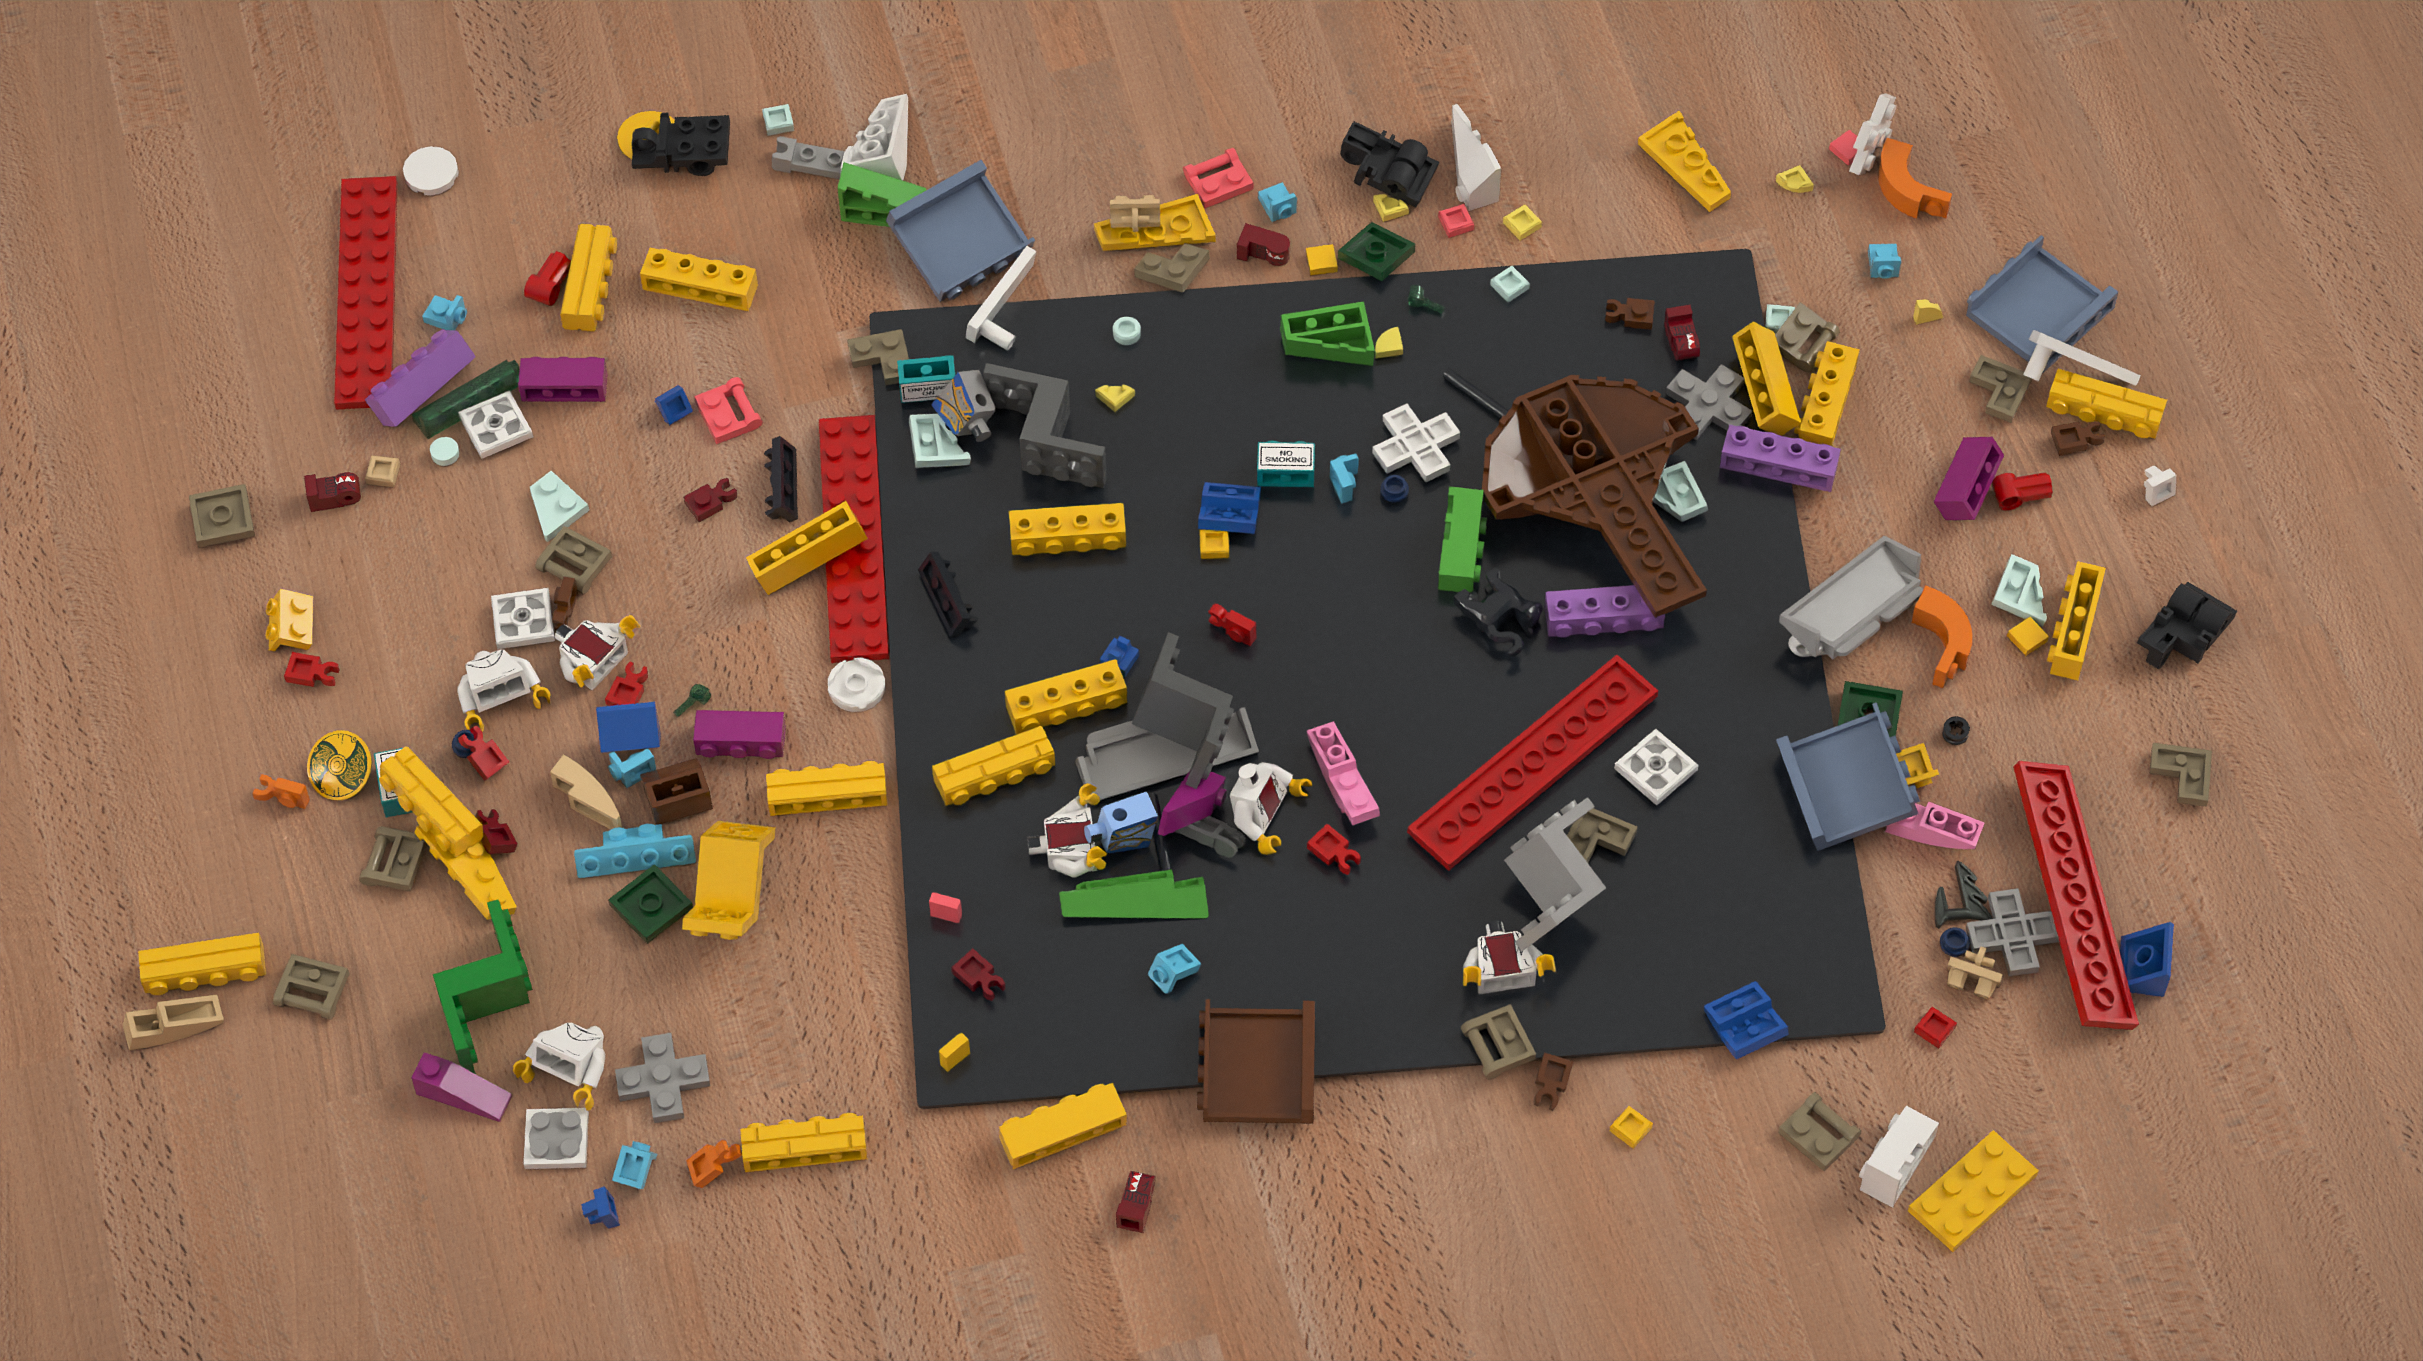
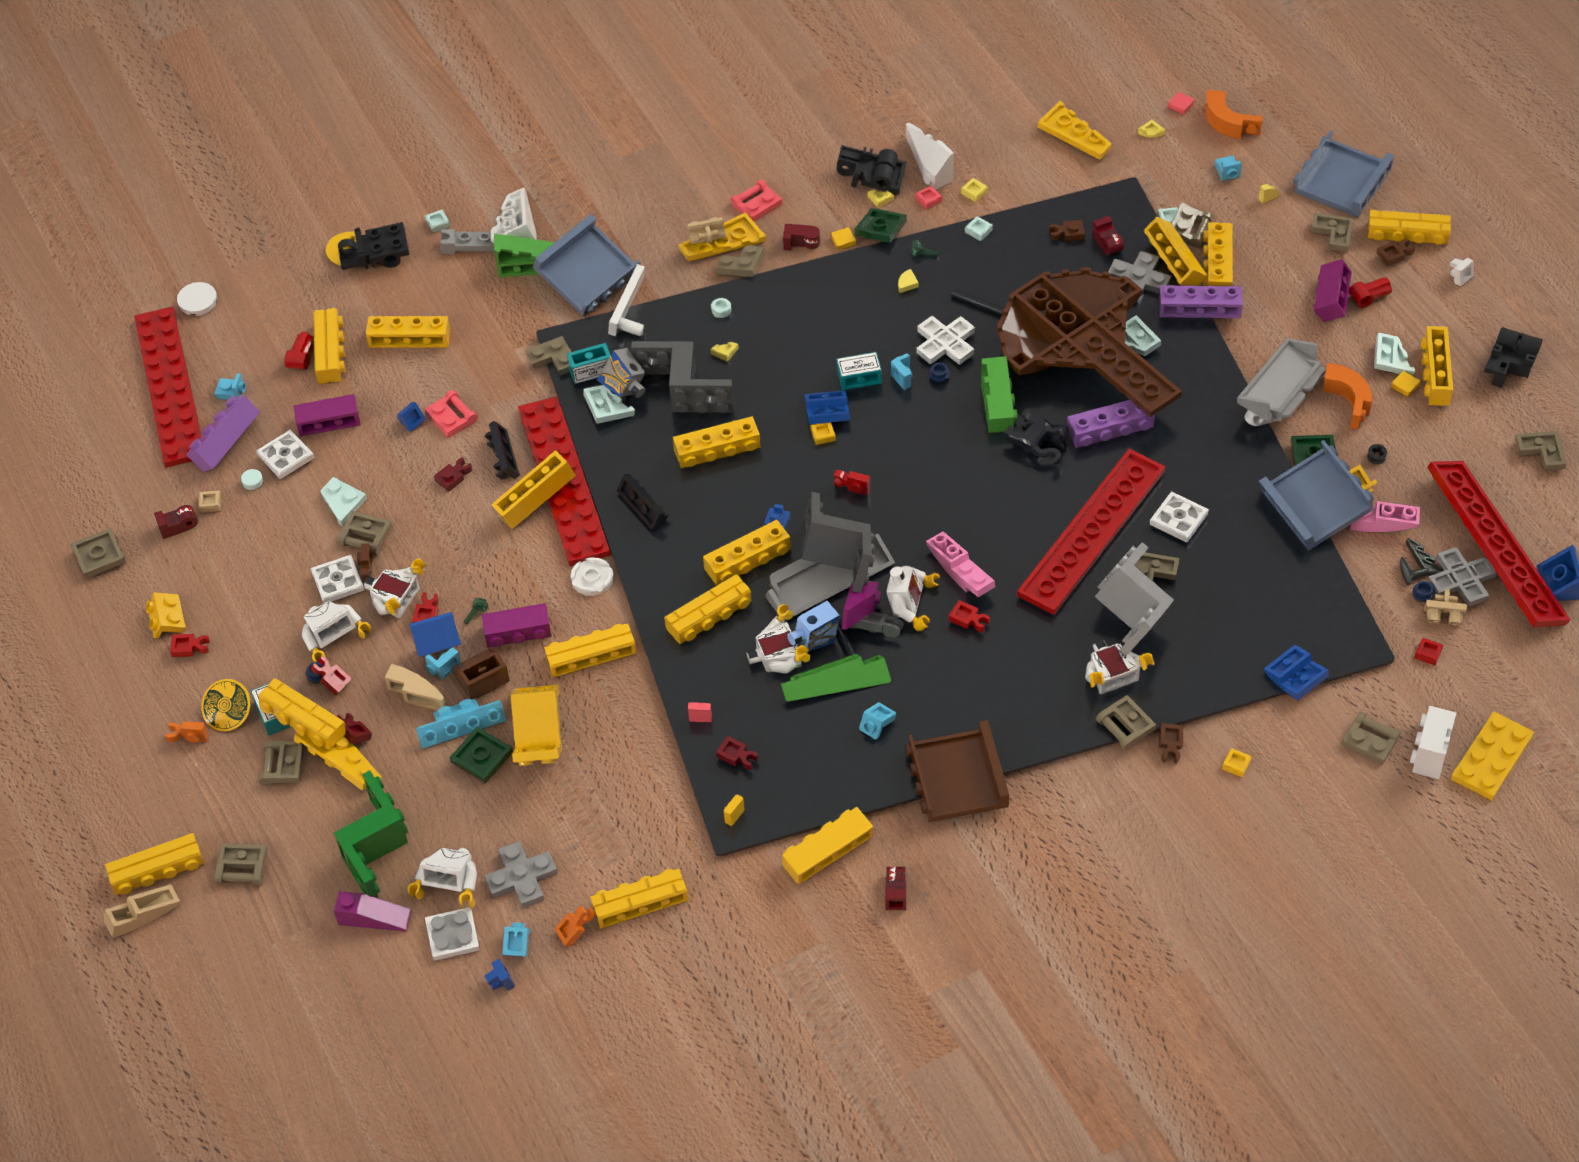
camera: 10 degrees left, 5 degrees down
(444, 411) = (246, 452): clear green fence -> none
(1278, 202) = (802, 208): medium azure bracket -> none
(1329, 334) = (865, 281): bright green wedge -> none
(1873, 134) = (1198, 88): white plate -> none
(2047, 344) = (1361, 193): white piece -> none

